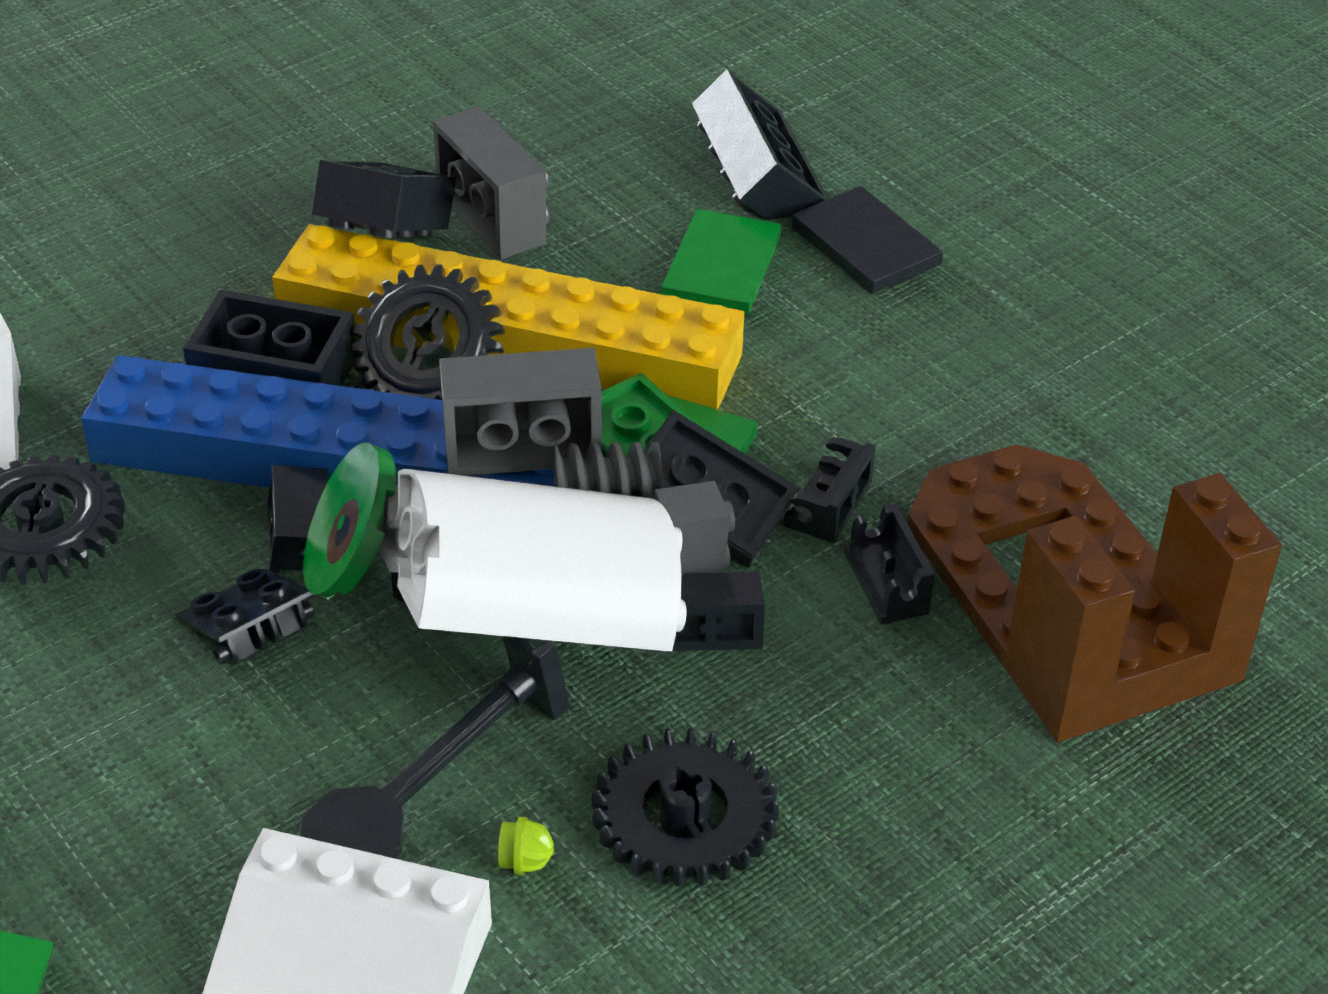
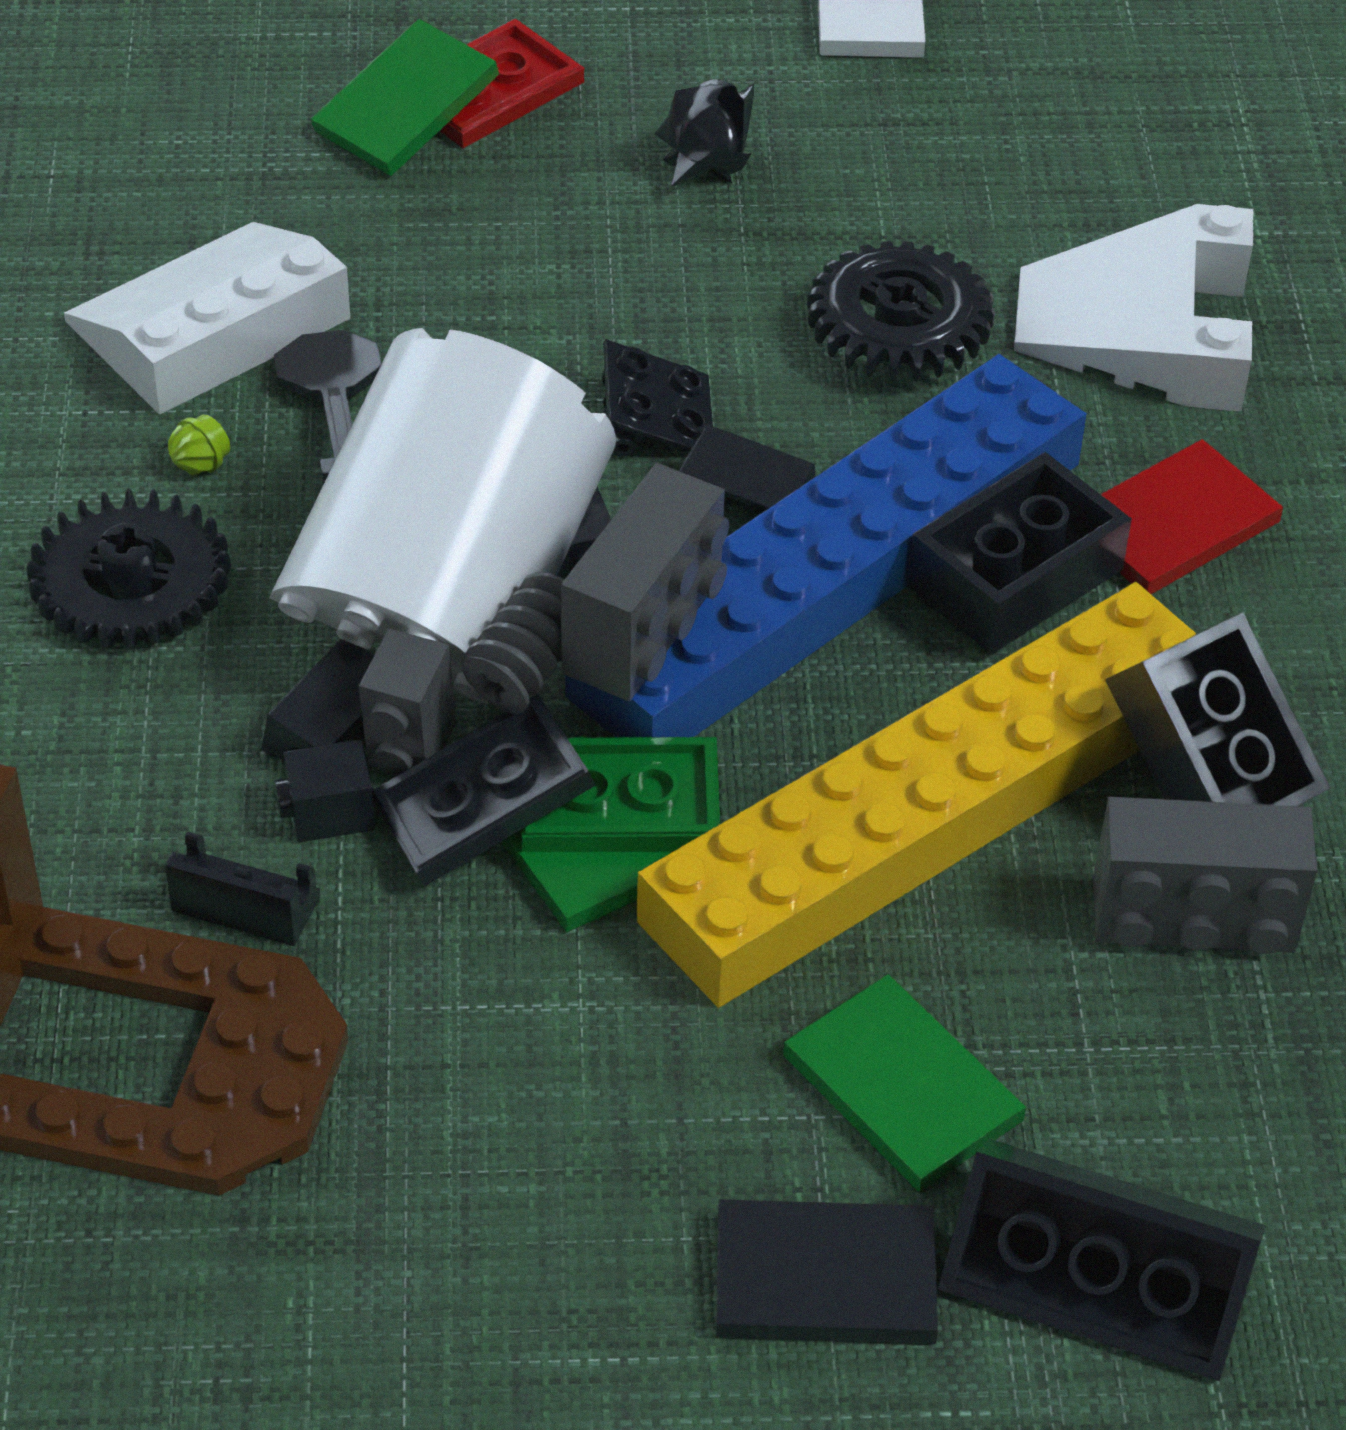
camera: 125 degrees right, 5 degrees up
(138, 324) = (1188, 514): none -> red tile
(347, 521) = (644, 427): green tile -> none
(442, 296) = (916, 661): black gear -> none
(785, 567) = (326, 791): none -> black brick
(832, 491) = (398, 916): black hinge -> none

